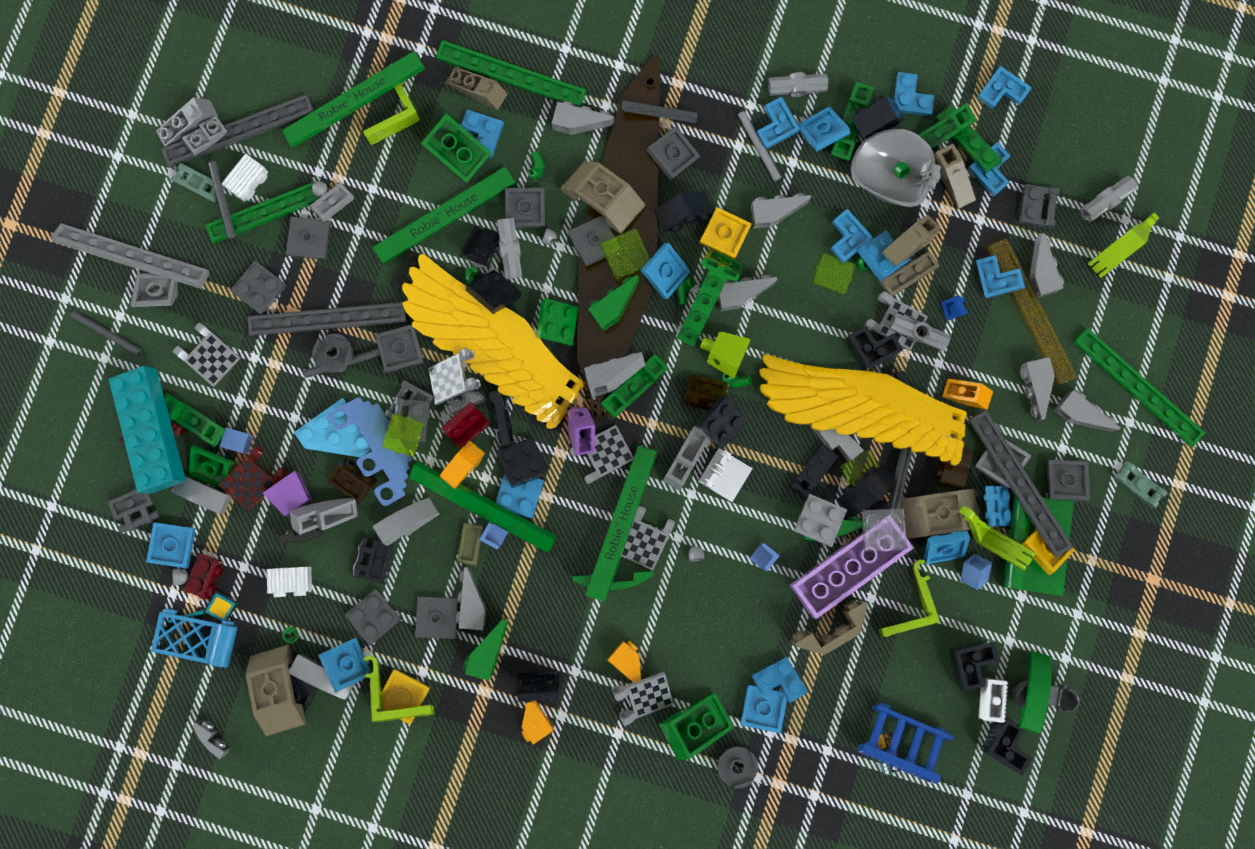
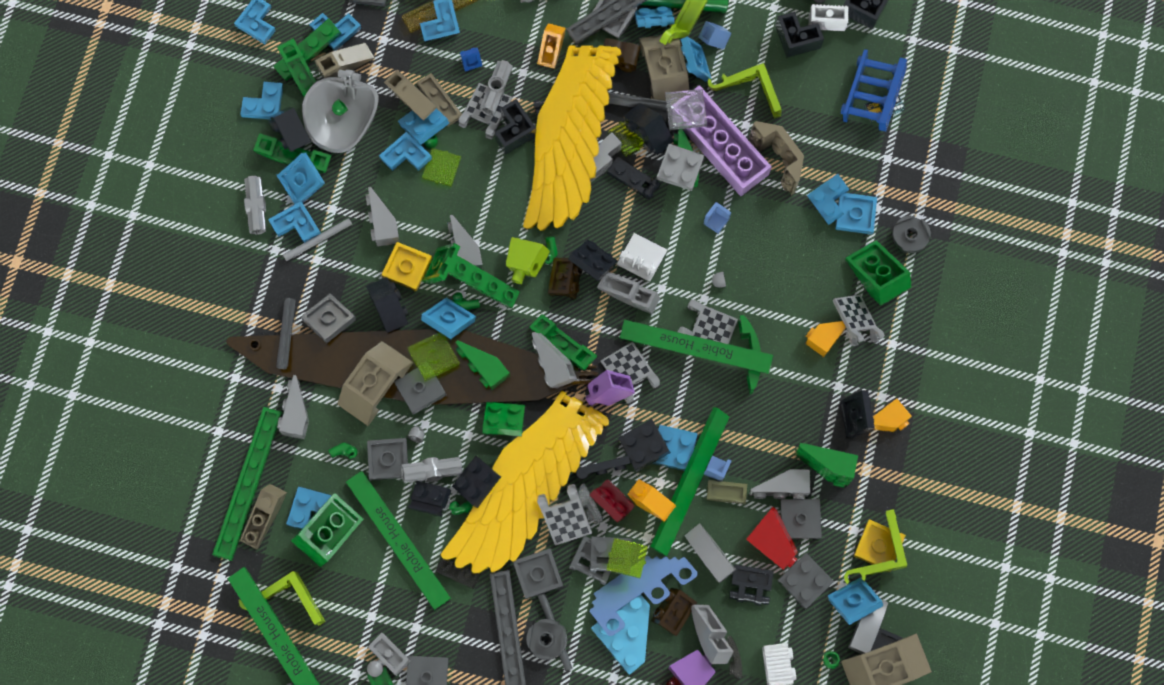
camera: 90 degrees left, 10 degrees down
(413, 587) = (774, 540): none -> red slope

